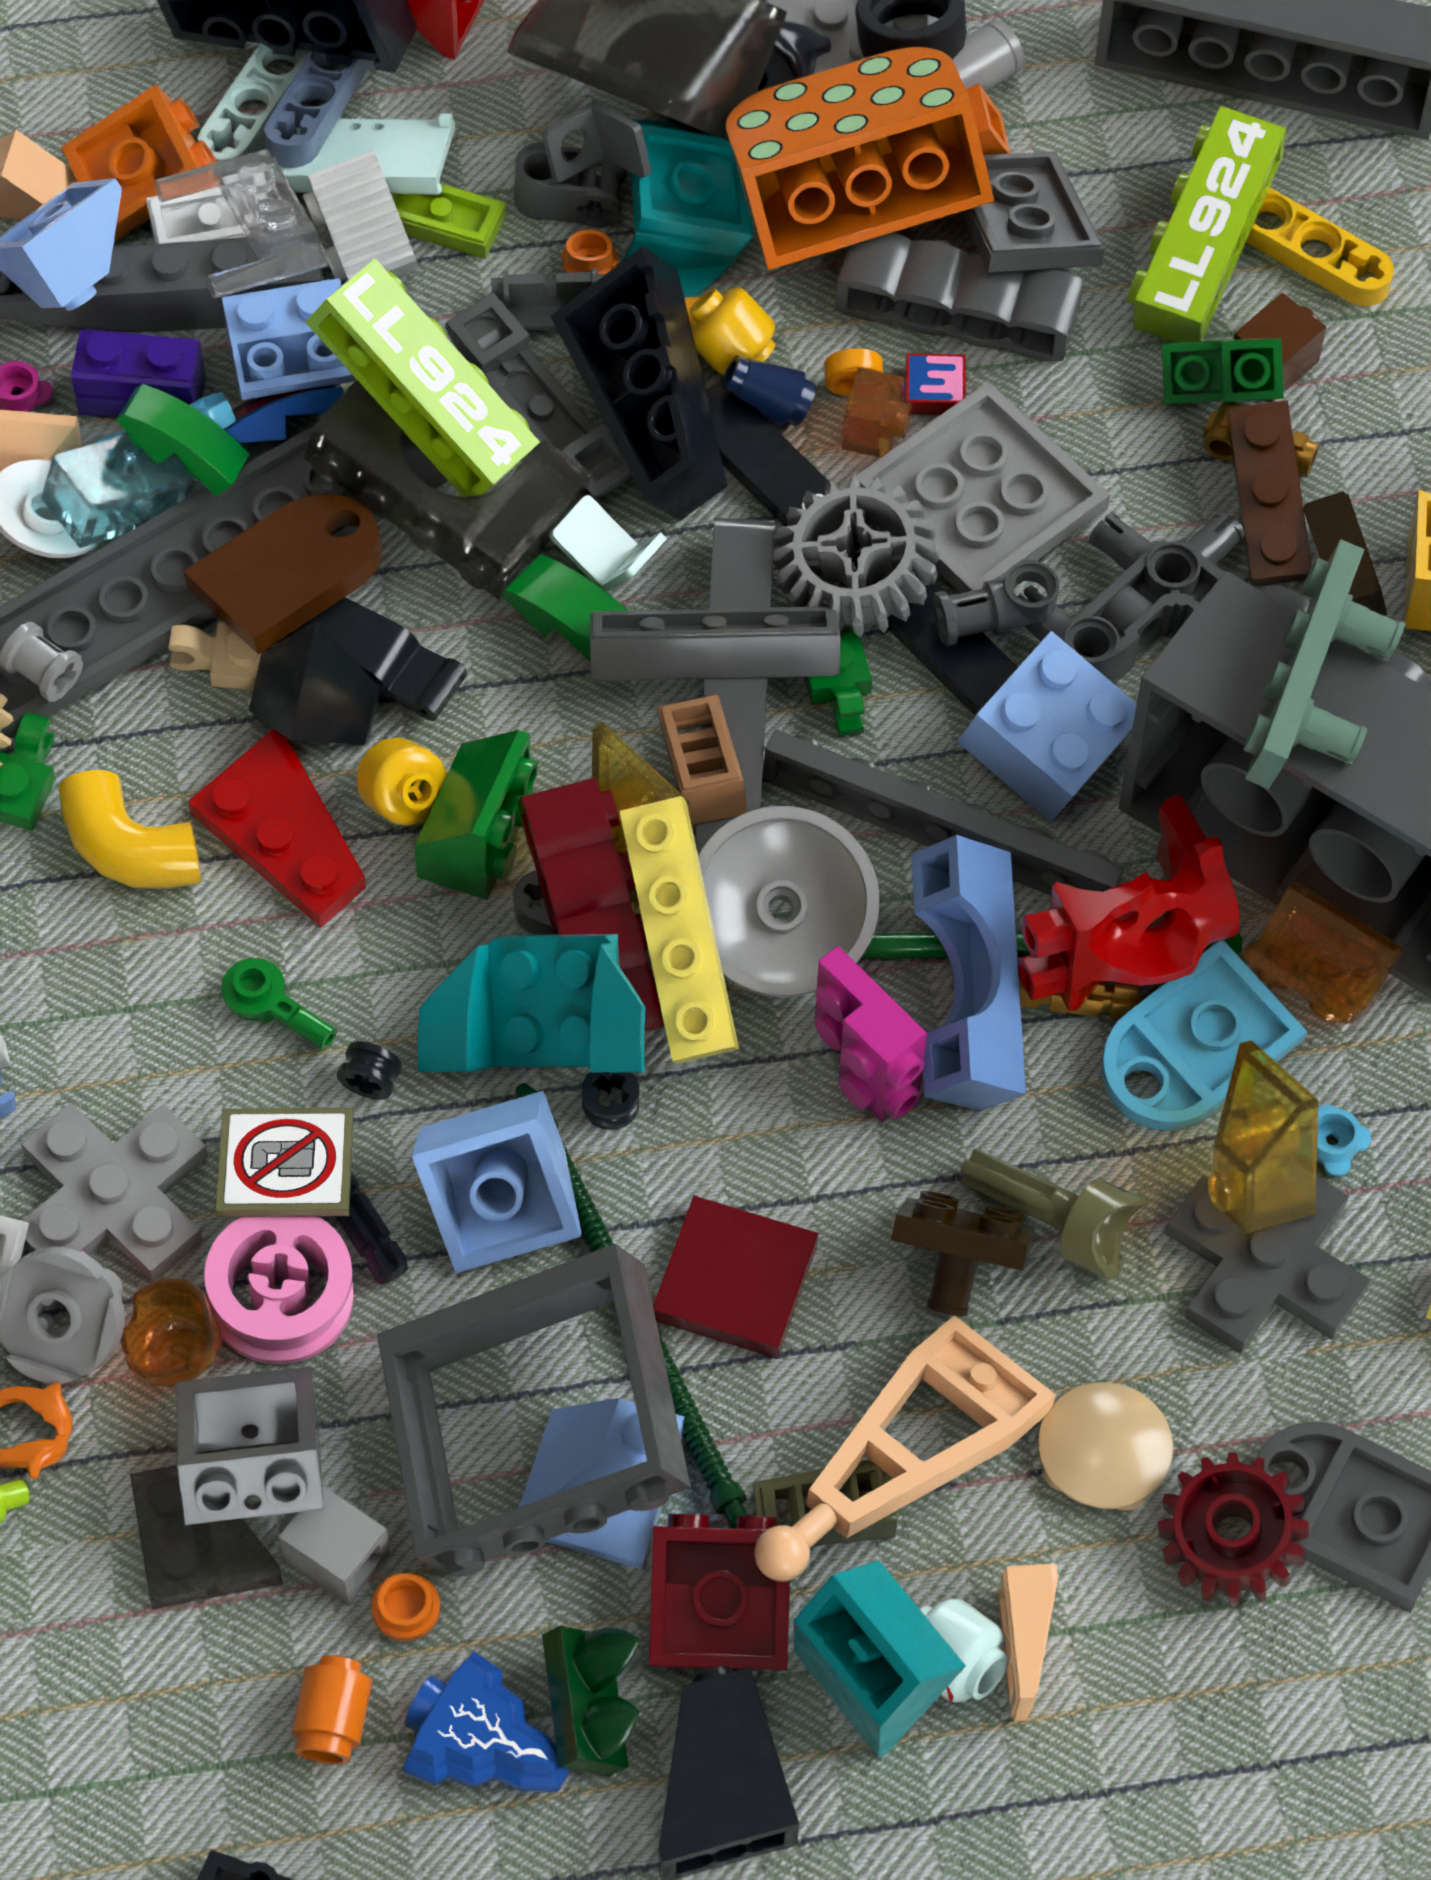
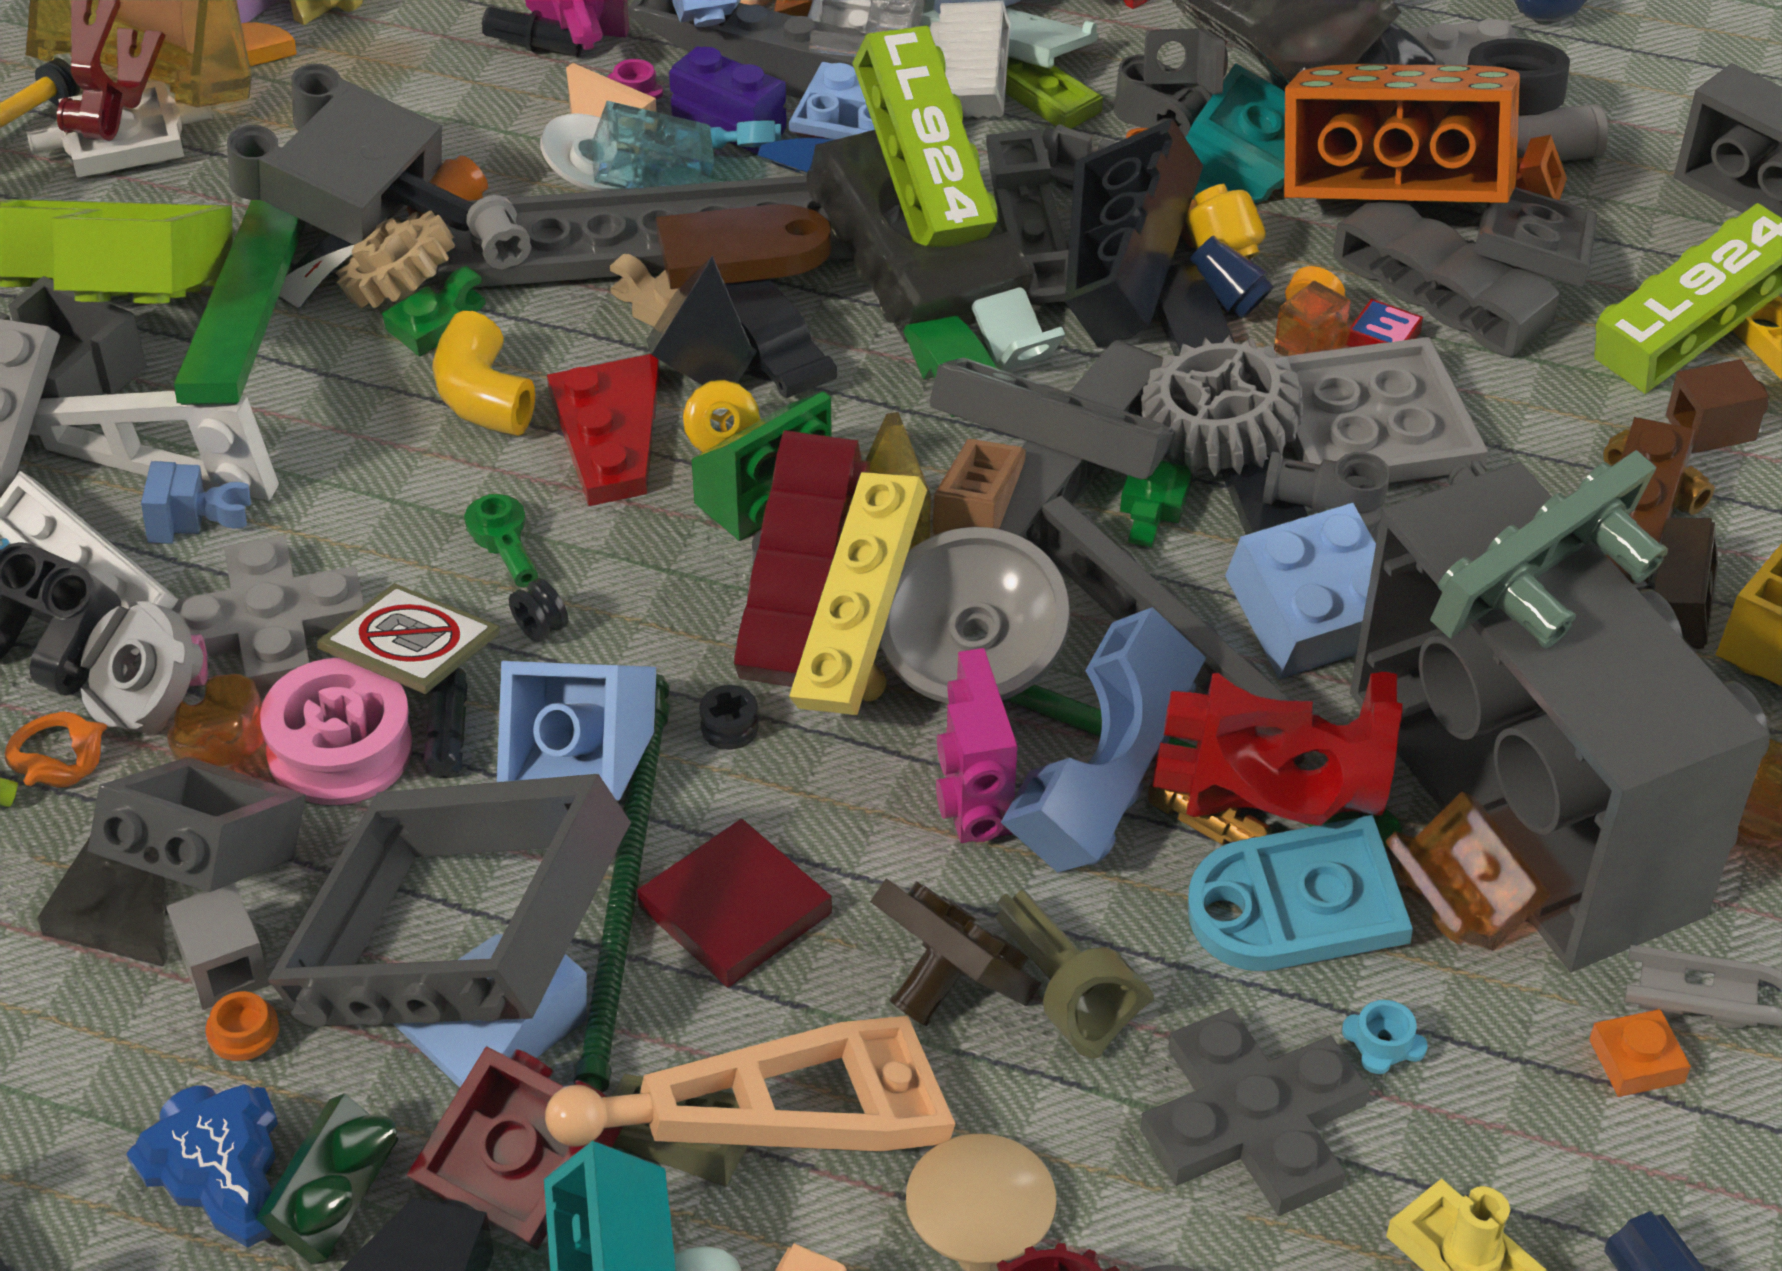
camera: 30 degrees right, 15 degrees down
(170, 426) = (712, 116): green slope -> none
(331, 1710) = (106, 1076): orange brick -> none
(535, 1007) = (693, 605): teal piece -> none
(1222, 370) = (1650, 394): green slope -> none
(1264, 1145) = (1288, 988): clear yellow slope -> none

